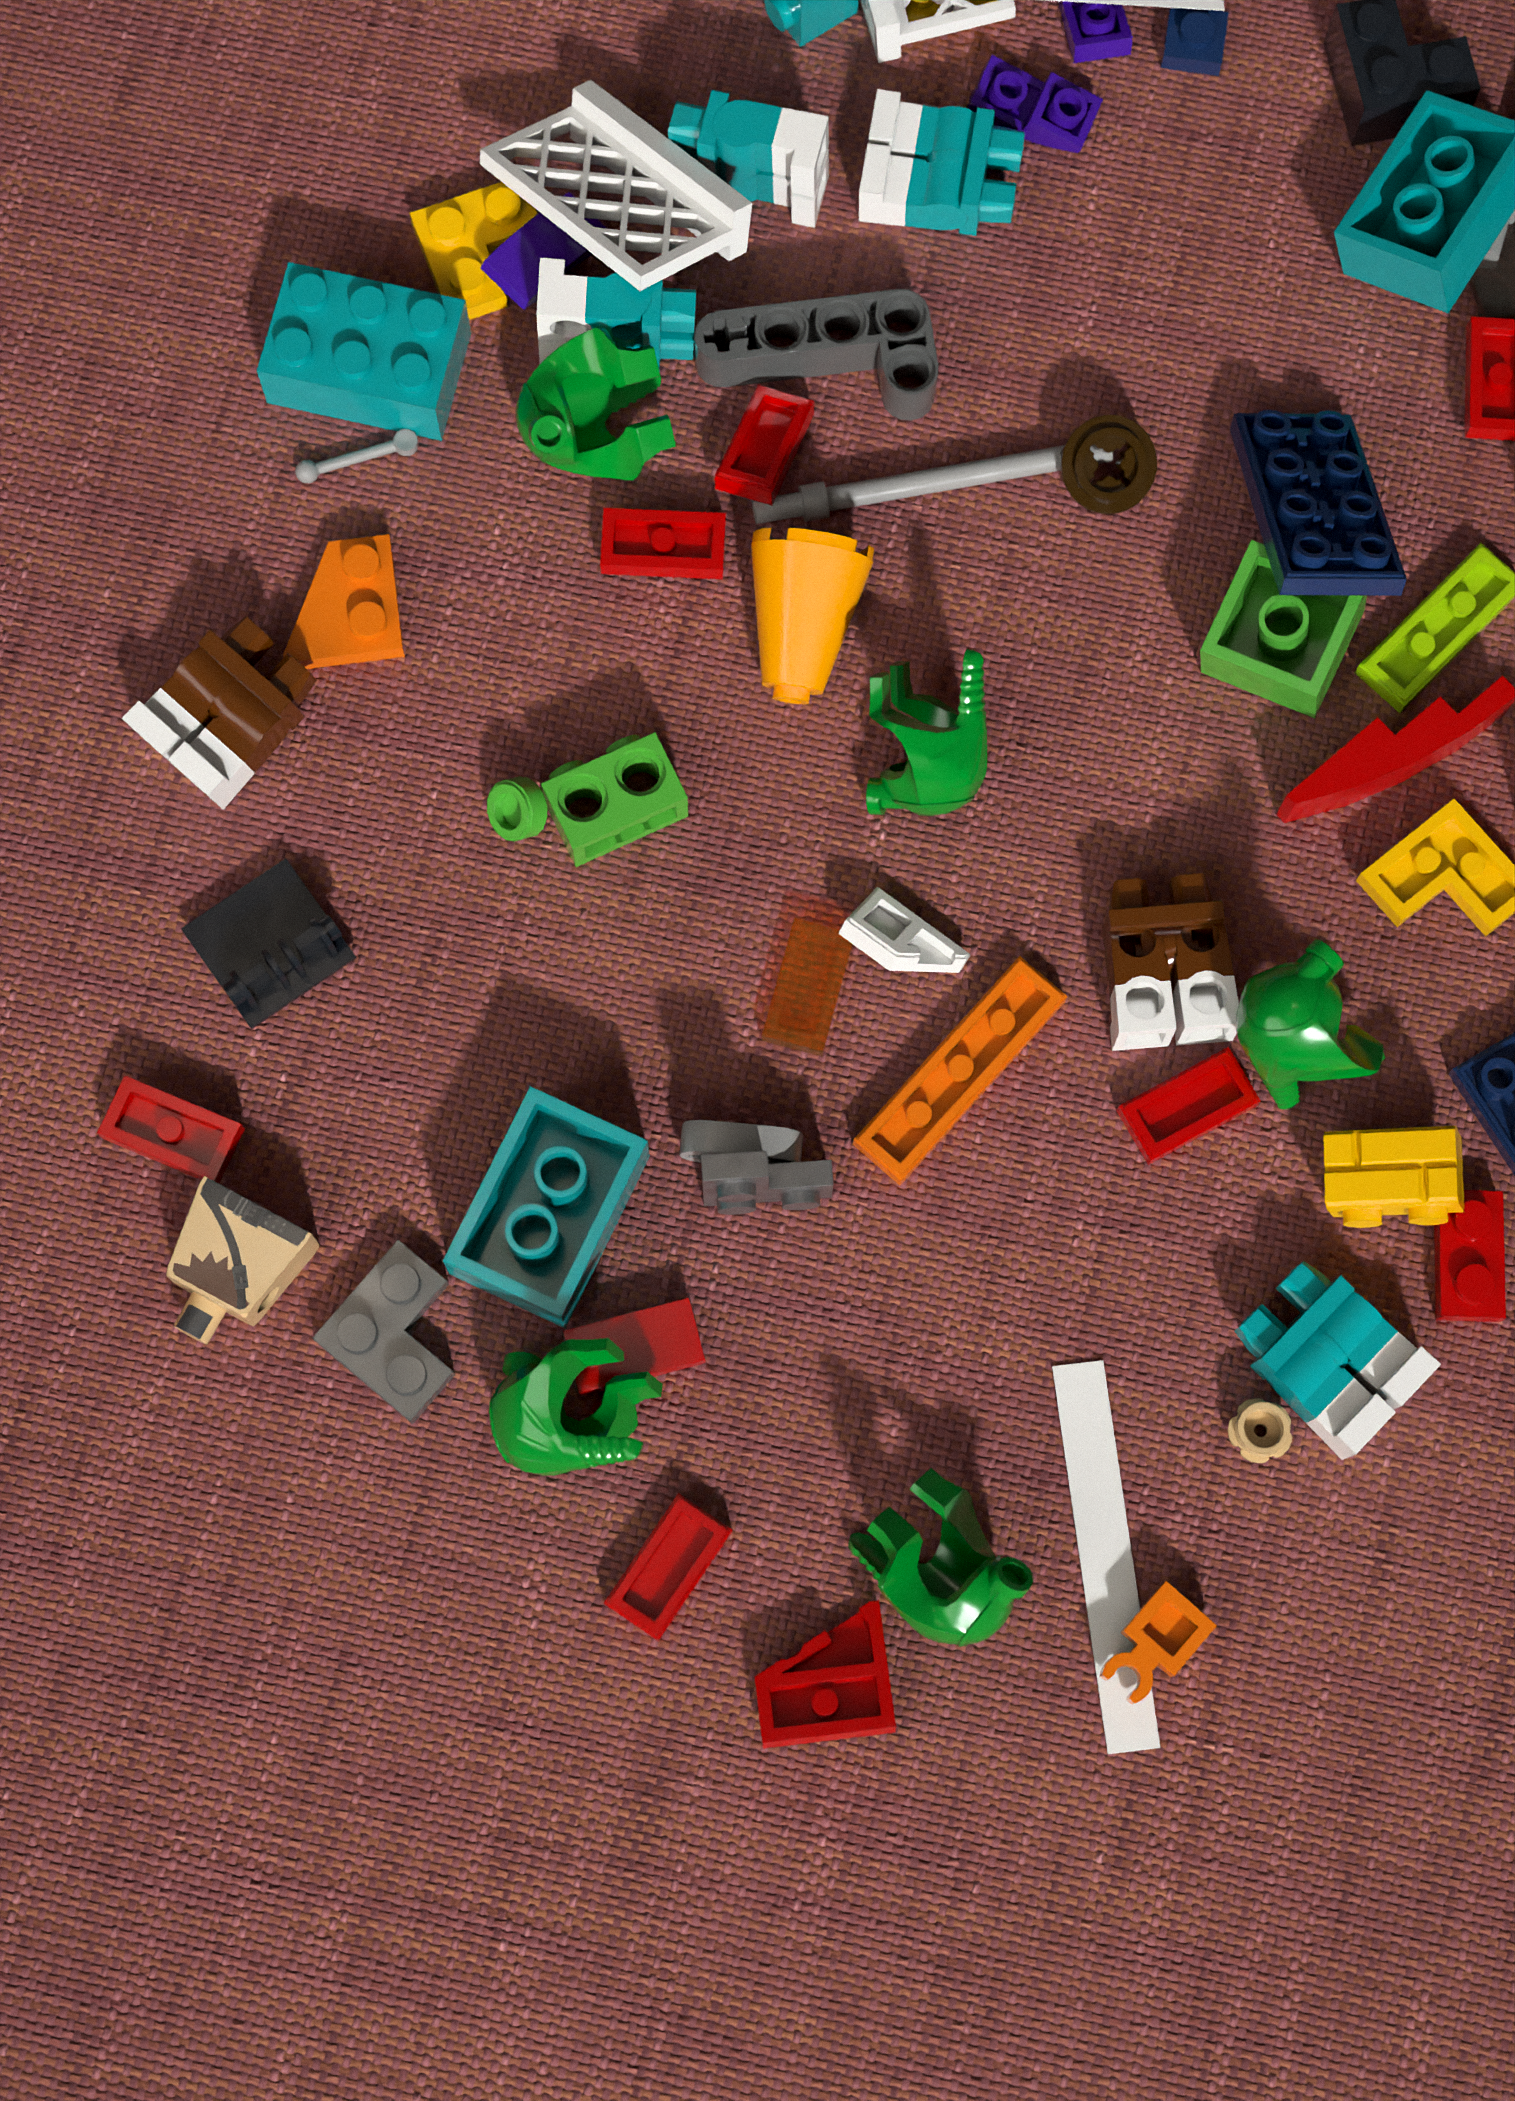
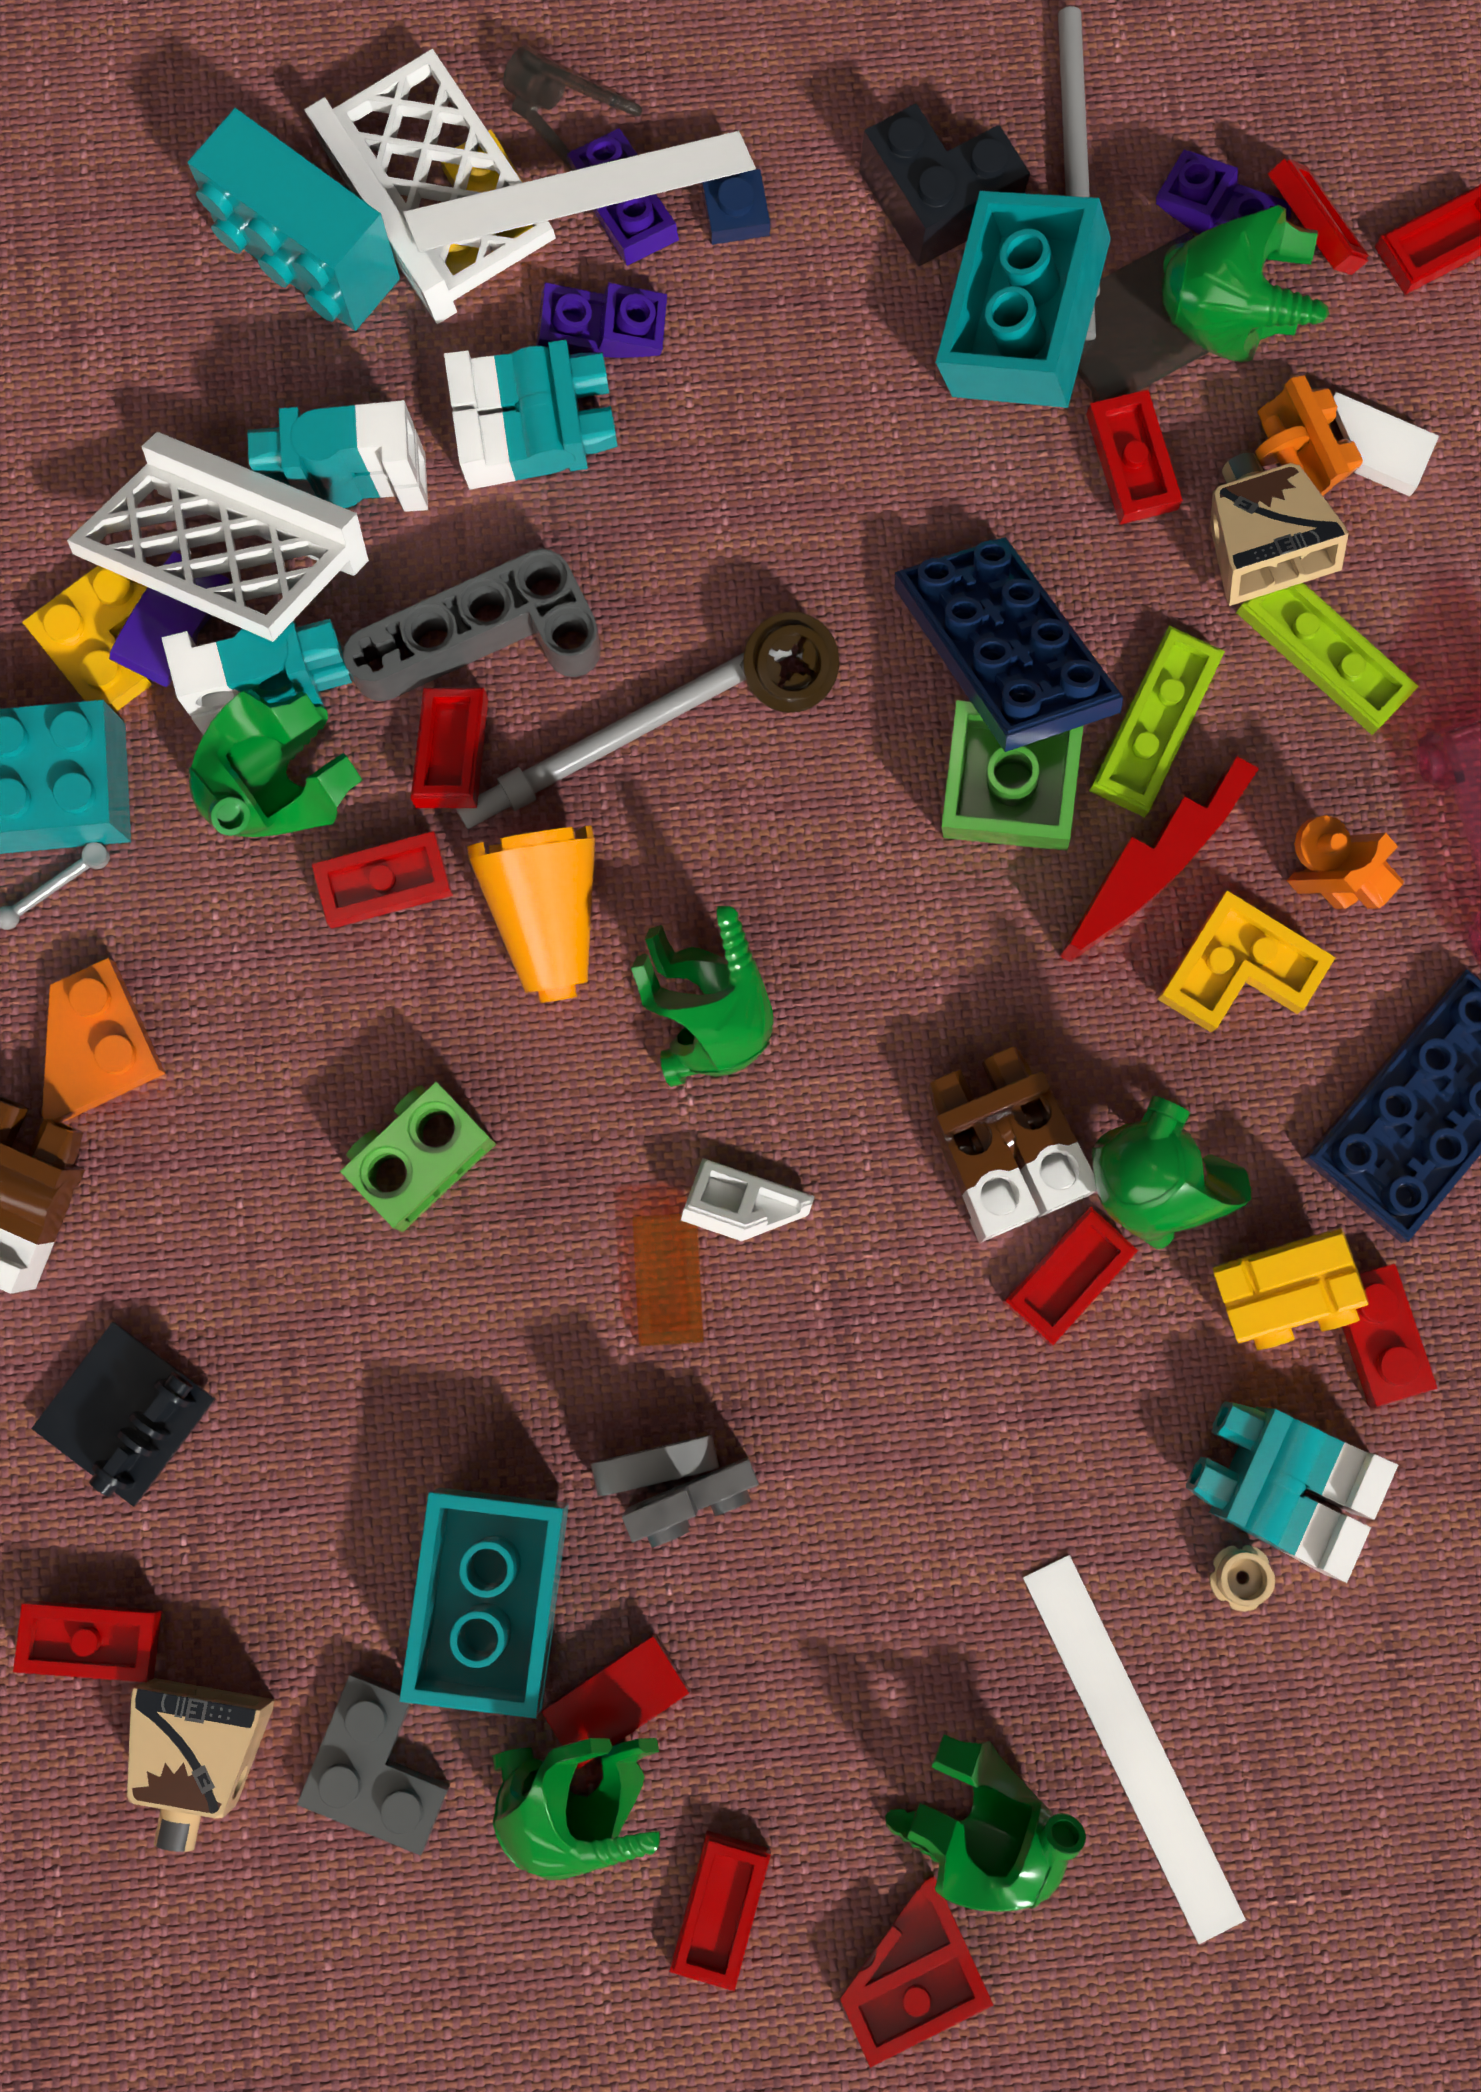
camera: 20 degrees left, 5 degrees up
(517, 808) = (325, 1198): bright green tile -> none
(959, 1070) = (841, 1315): orange tile -> none
(1164, 1635) = (1218, 1816): orange plate -> none

